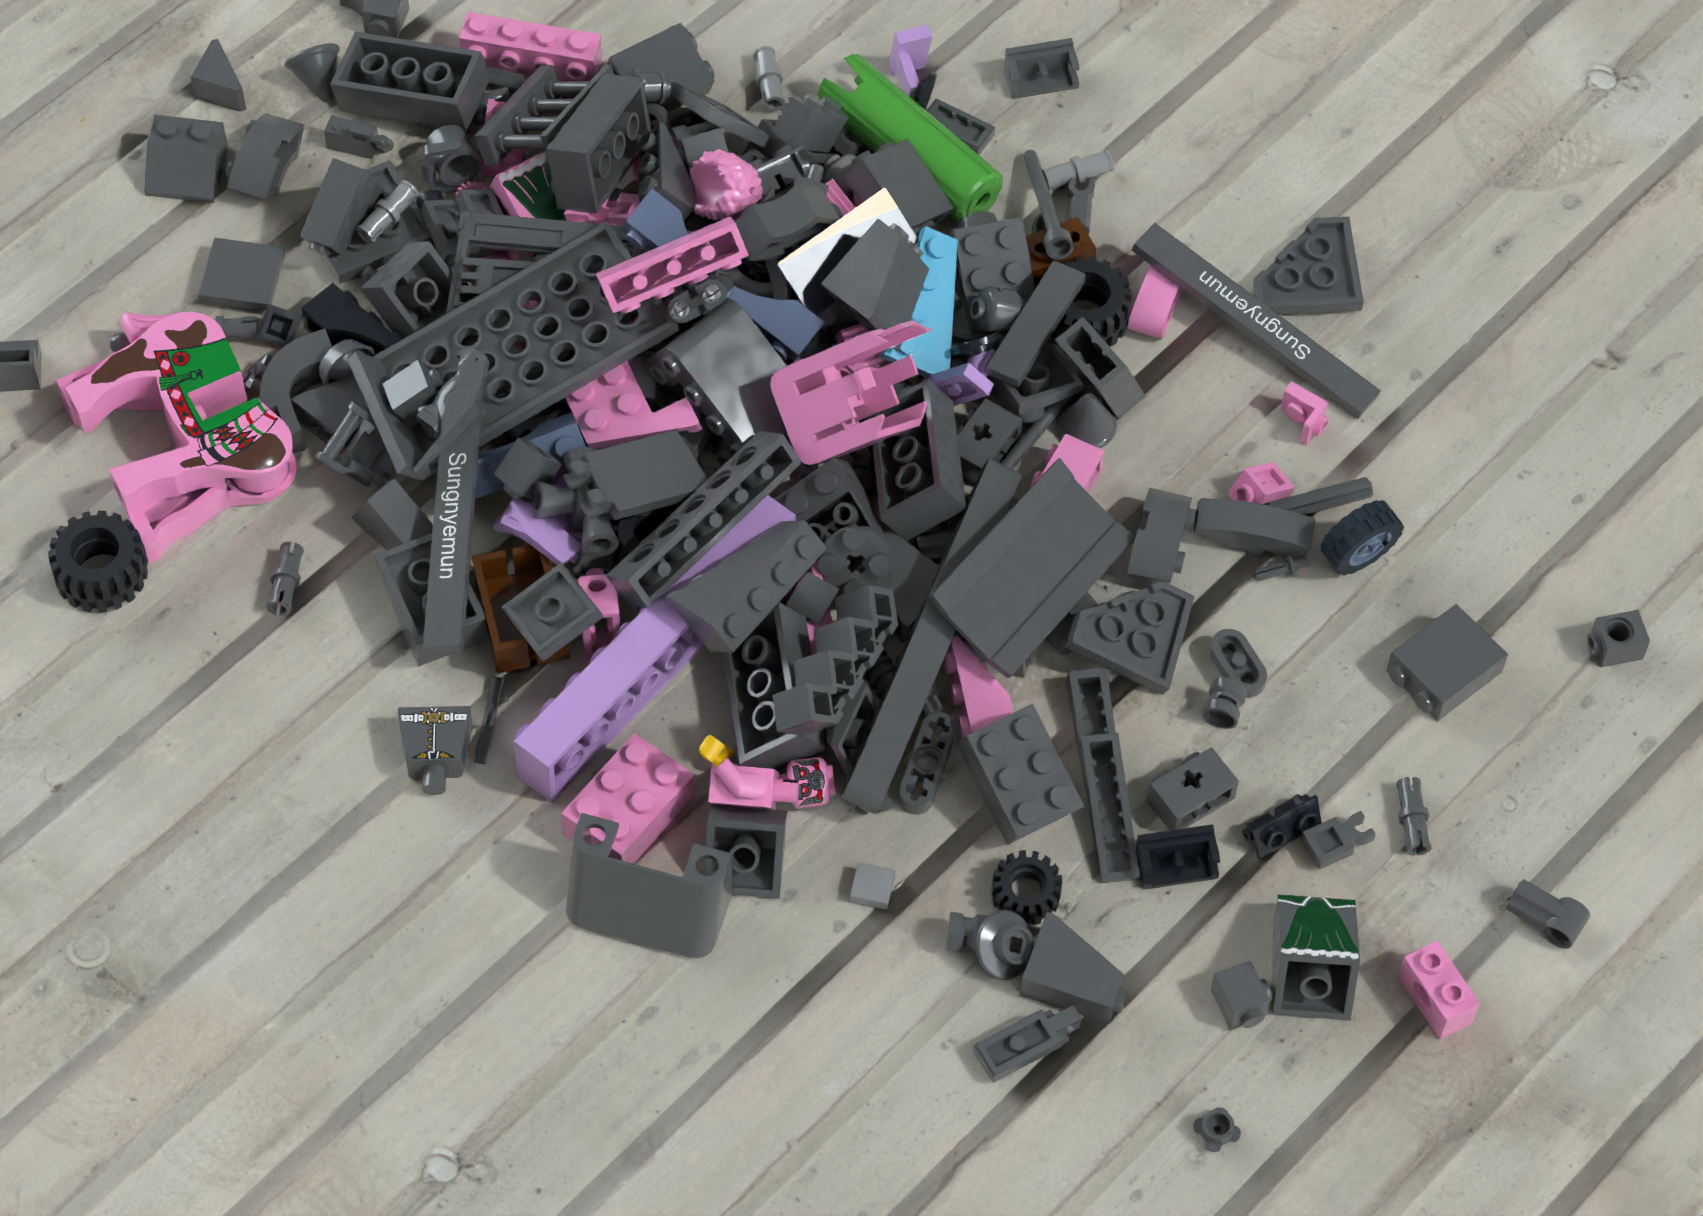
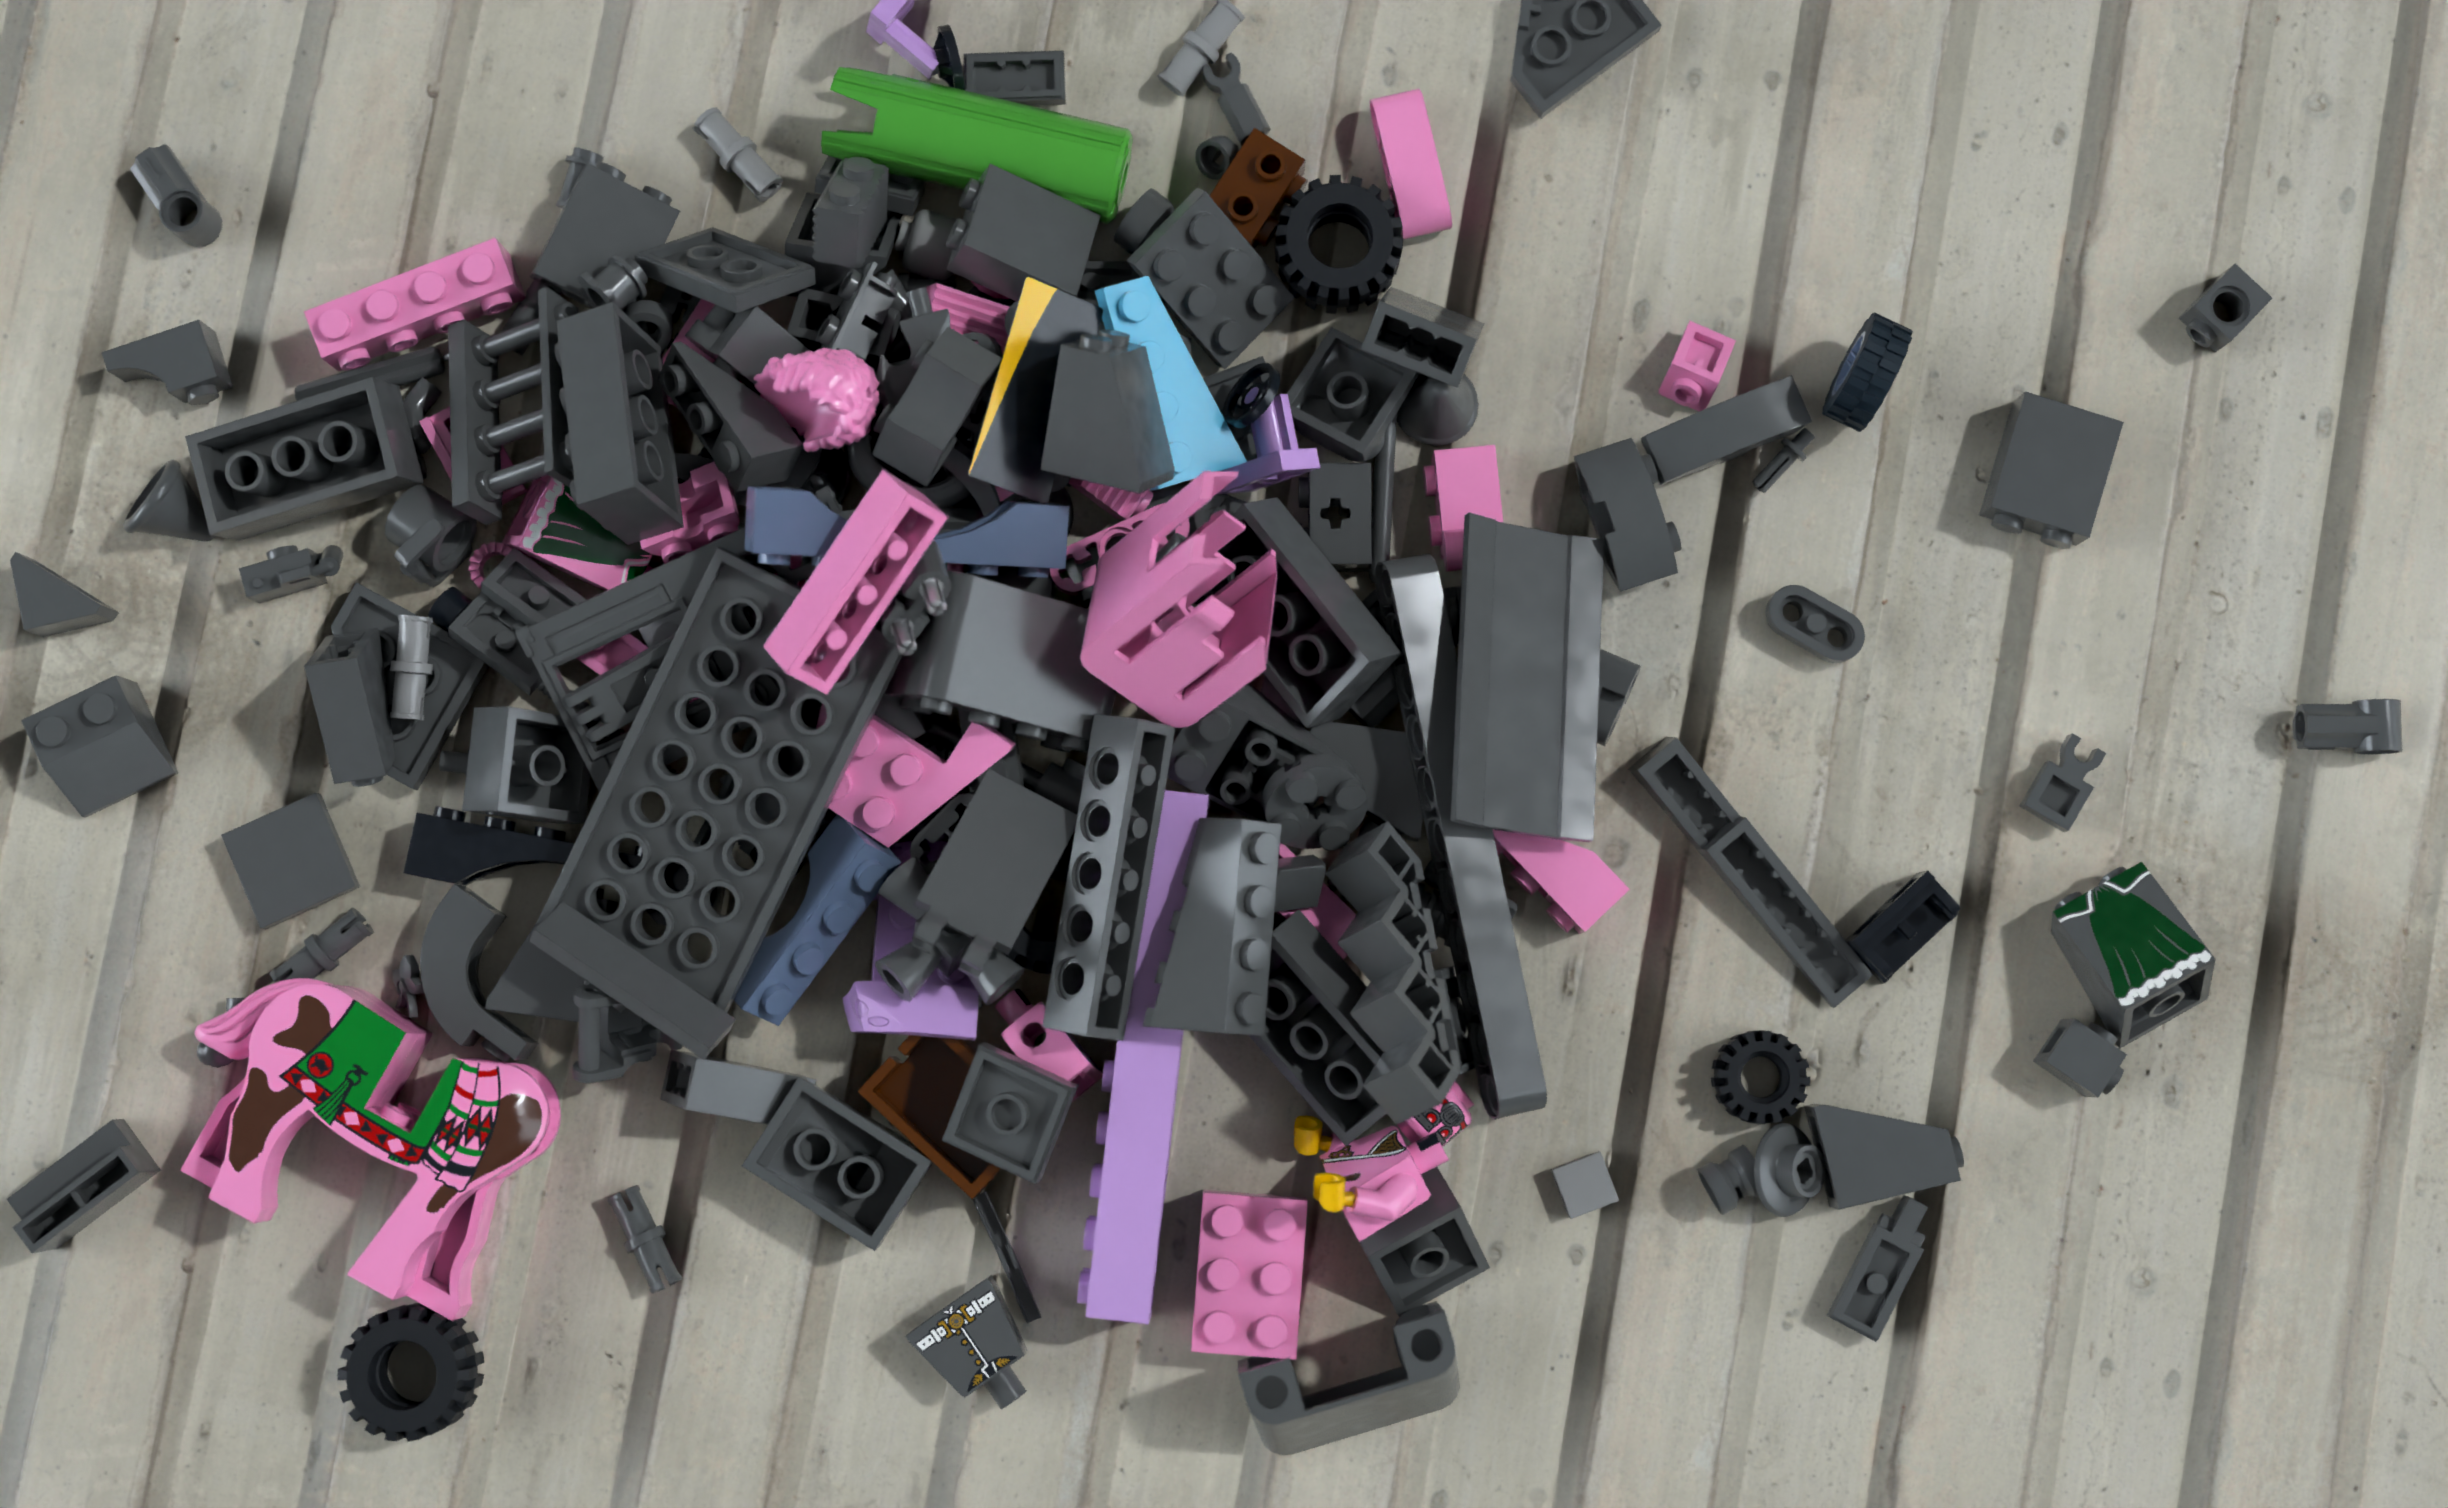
camera: 30 degrees left, 25 degrees up
(265, 156) = (198, 679): dark grey brick -> none
(278, 325) = (390, 906): black slope -> none
(335, 363) = (514, 913): dark grey hat -> none
(412, 389) = (646, 936): brick -> none
(452, 543) = (804, 1061): dark grey tile -> none
(455, 404) = (709, 928): dark grey animal -> none
(524, 467) = (850, 945): dark grey brick -> none
(930, 778) = (1566, 1021): dark grey beam -> none
(996, 309) = (1250, 332): dark grey head -> none
(1020, 774) = (1675, 952): dark grey brick -> none
(1035, 324) = (1311, 327): dark grey tile -> none
(1057, 240) = (1261, 189): dark grey piece -> none
(1136, 634) = (1682, 667): dark grey plate -> none
(1192, 789) = (1889, 814): dark grey brick -> none
(1217, 1118) = (2164, 1232): dark grey plate -> none
(1225, 699) = (1828, 679): dark grey wheel -> none
(1256, 320) = (1552, 137): dark grey tile -> none
(1291, 820) = (2000, 785): black hinge -> none
(1307, 408) = (1681, 220): bright pink bracket -> none
(1327, 497) = (1773, 334): dark grey axle -> none
(1413, 816) = (2128, 695): dark grey pin -> none
(1438, 990) = (2292, 909): bright pink brick -> none

